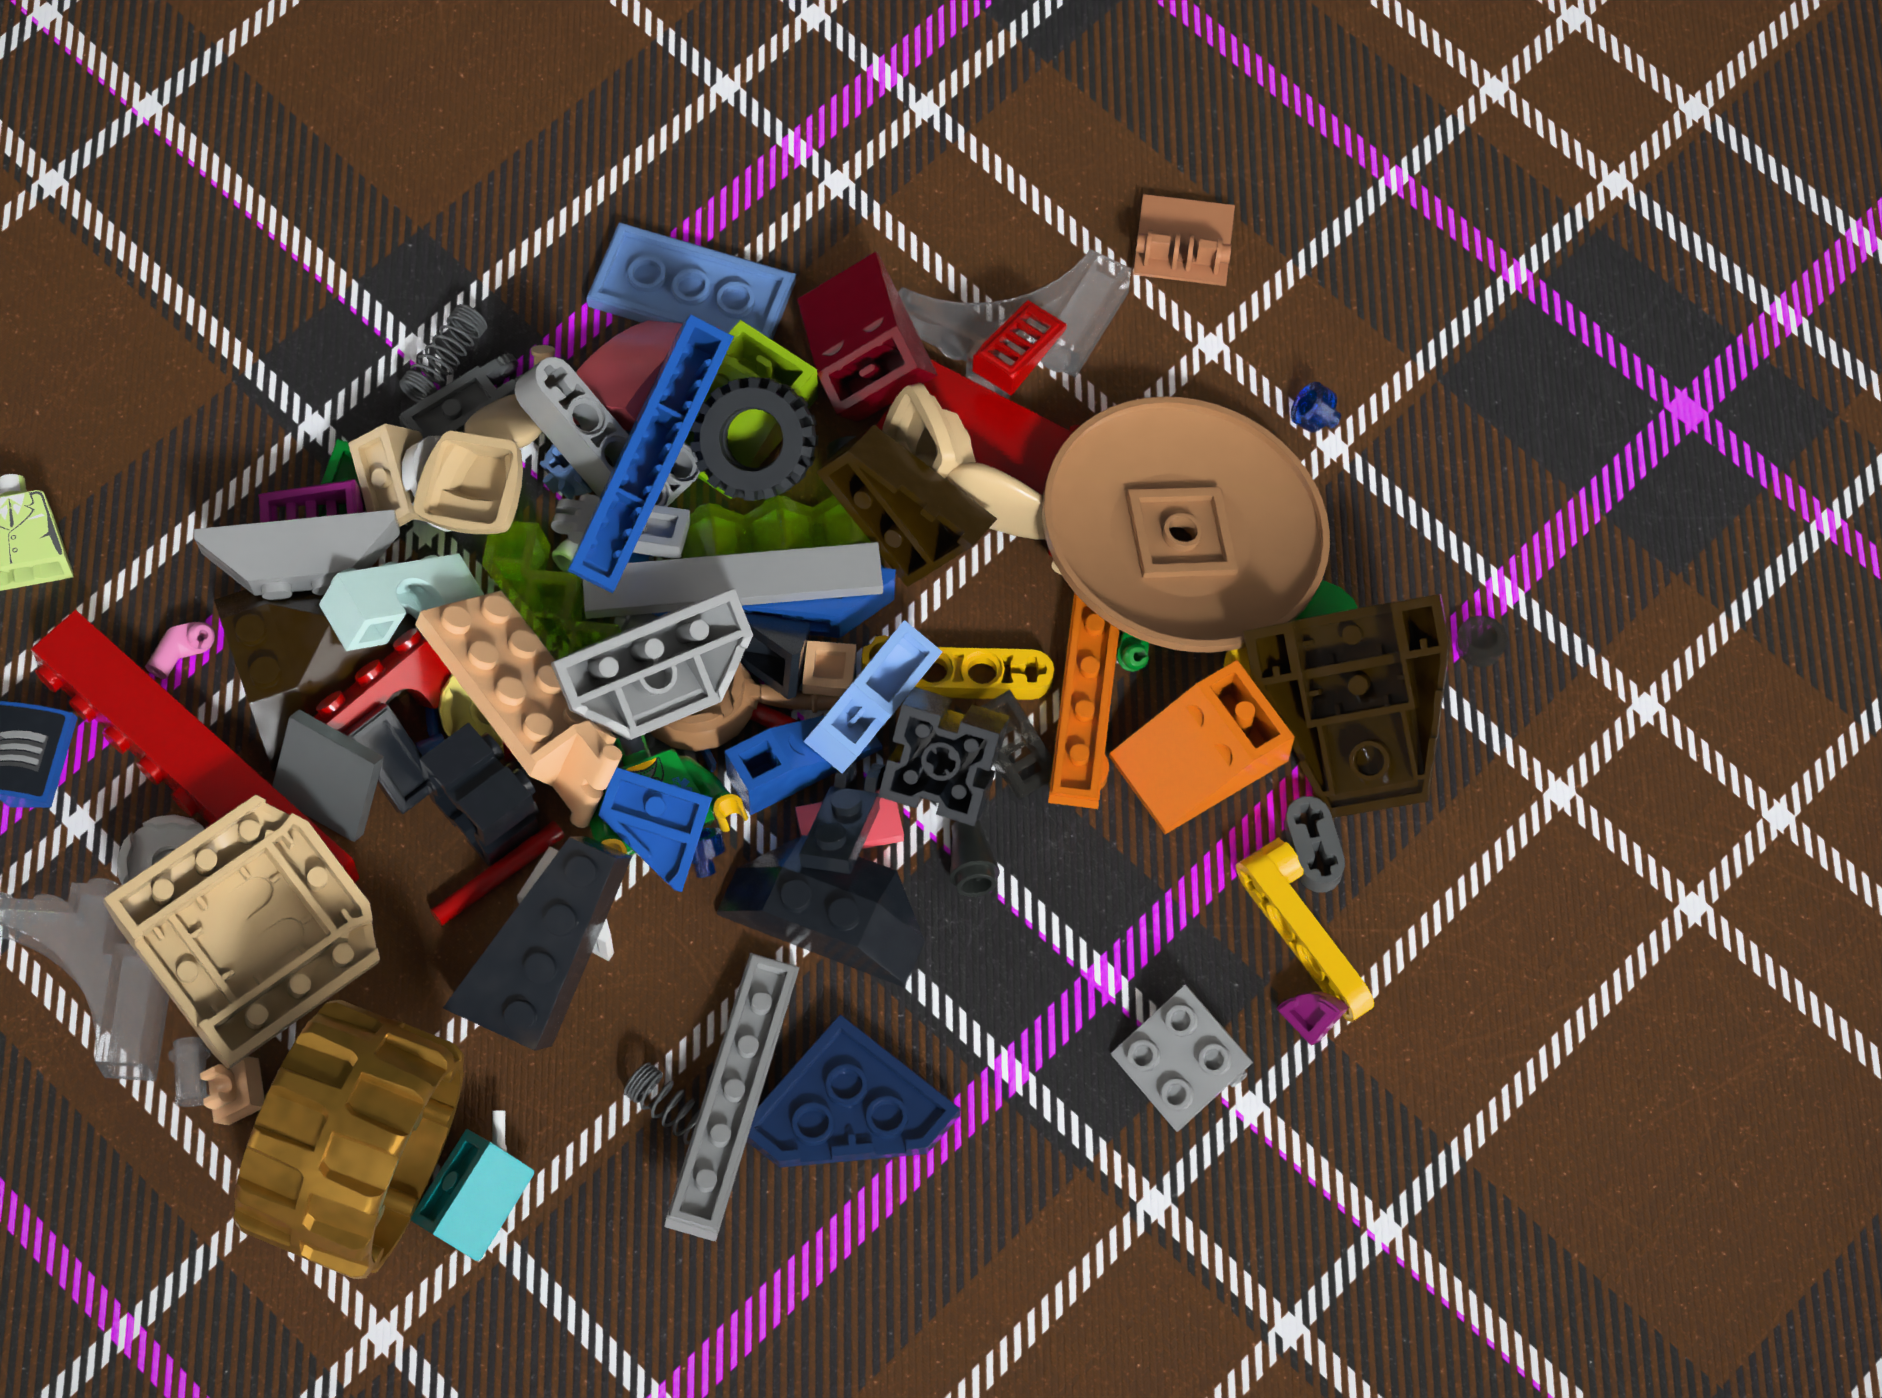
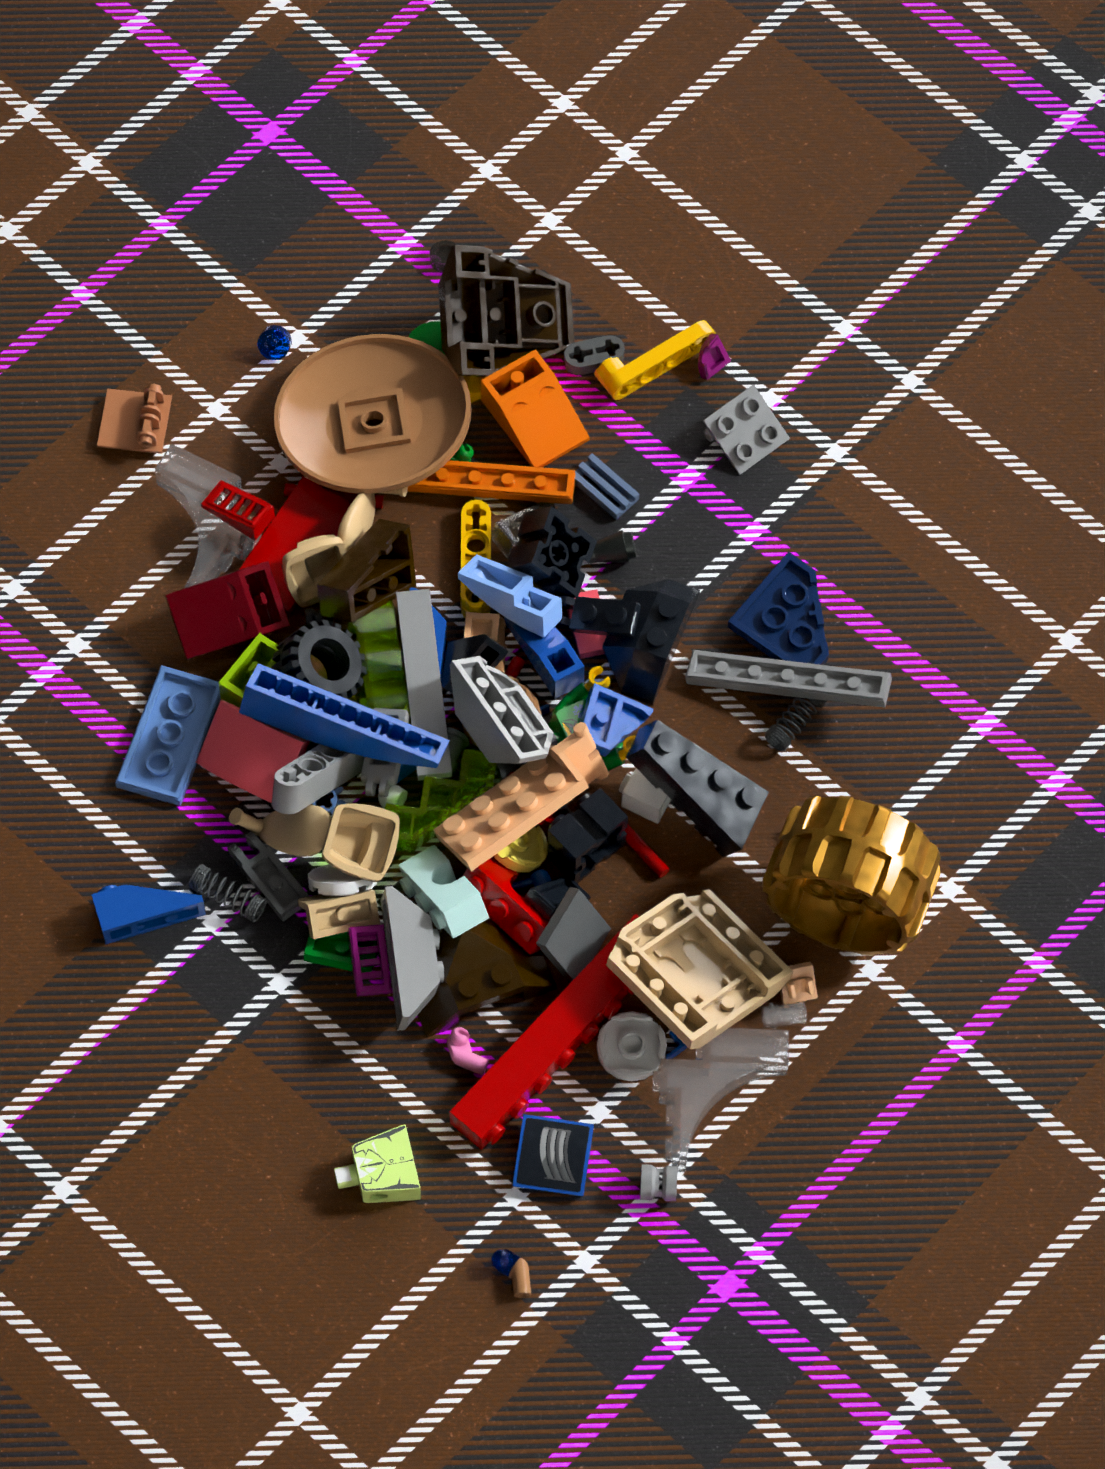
camera: 90 degrees left, 0 degrees up
(426, 246) = (136, 910): none -> blue slope
(1111, 825) = (612, 478): none -> sand blue tile

